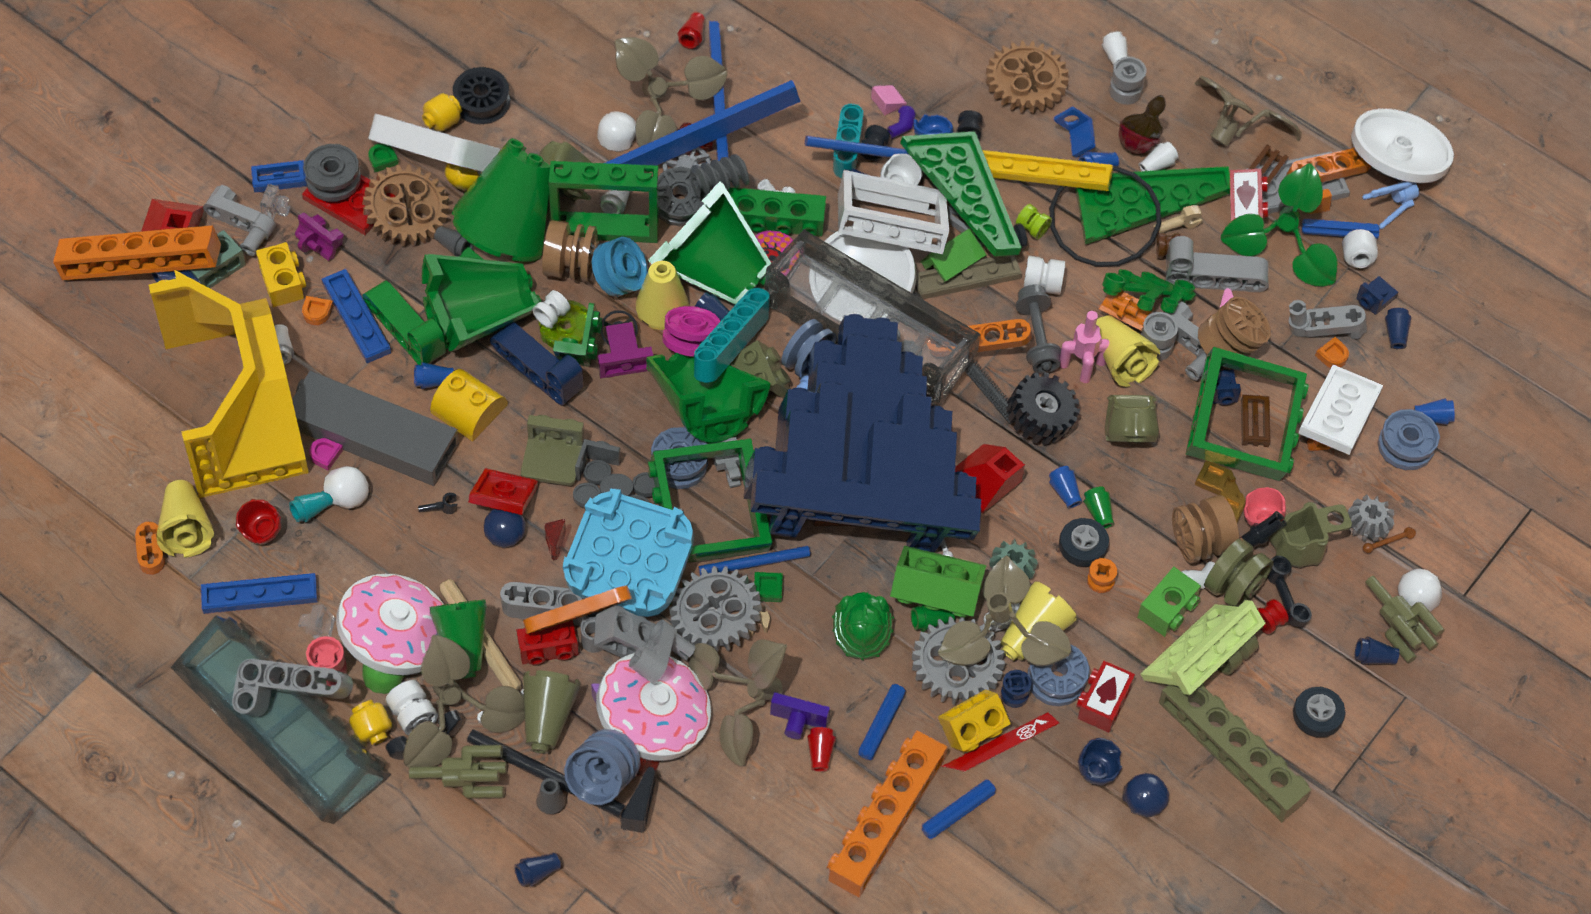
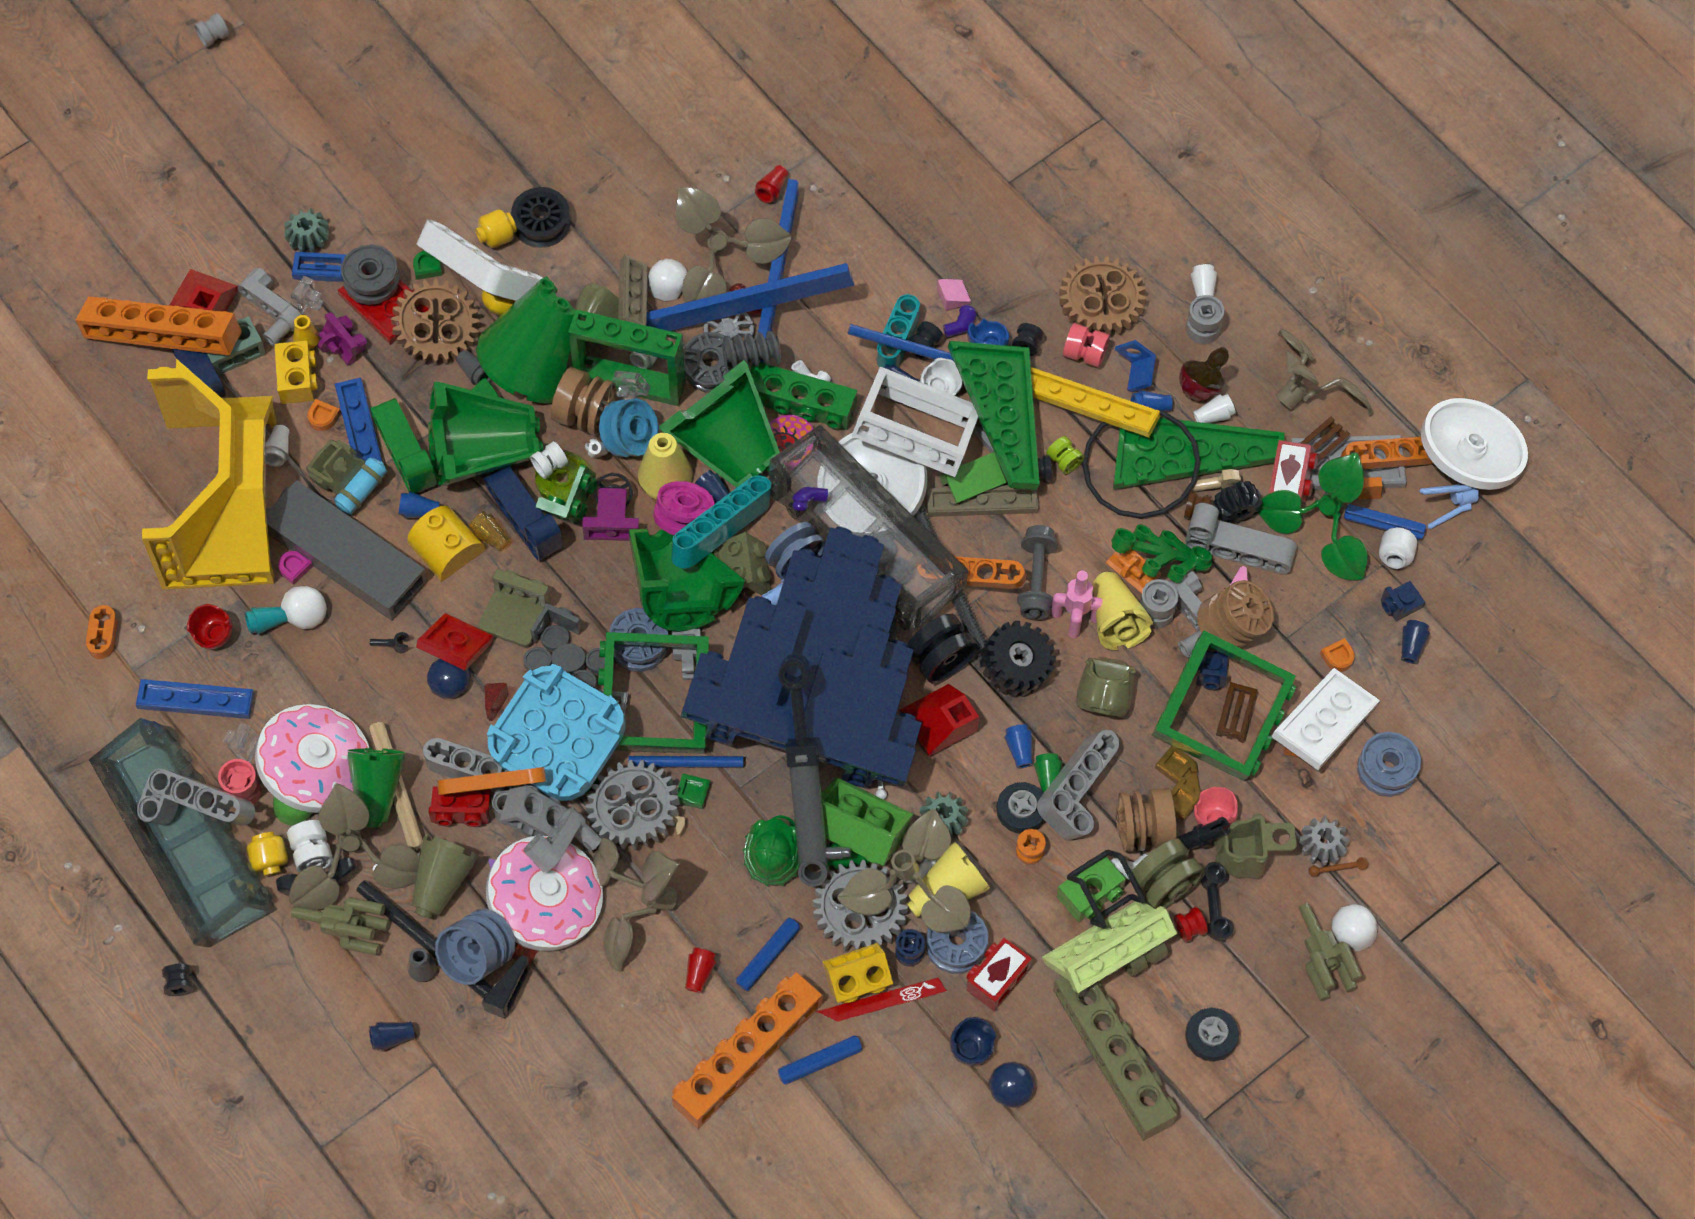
camera: 15 degrees right, 5 degrees up
(183, 521) = (137, 611): light yellow cone -> none
(258, 145) = (306, 231): none -> sand green gear
(281, 233) = (305, 331): none -> yellow cone
(312, 859) = (177, 979): none -> black wheel
(355, 357) = (346, 474): none -> olive piece
(508, 385) = (488, 530): none -> clear yellow cone
(588, 140) = (632, 291): none -> dark tan tile
(591, 292) = (595, 448): none -> white arm
(611, 226) = (630, 384): none -> clear tile
(798, 713) = (685, 930): dark purple tile -> none
(809, 295) = (808, 494): none -> dark purple arm
(886, 550) = (802, 760): none -> dark grey piece
(973, 410) = (942, 648): none -> black wheel
(1025, 121) = (1078, 339): none -> coral wheel
(1046, 275) = (1059, 515): white wheel -> none
(1121, 524) = (1081, 778): none -> light grey beam
(1187, 621) = (1098, 920): none -> black piece
(1206, 232) = (1238, 501): none -> black gear
(1343, 320) = (1354, 622): light grey beam -> none
(1375, 652) = (1287, 983): dark blue cone -> none
(1439, 411) = (1428, 739): blue cone -> none

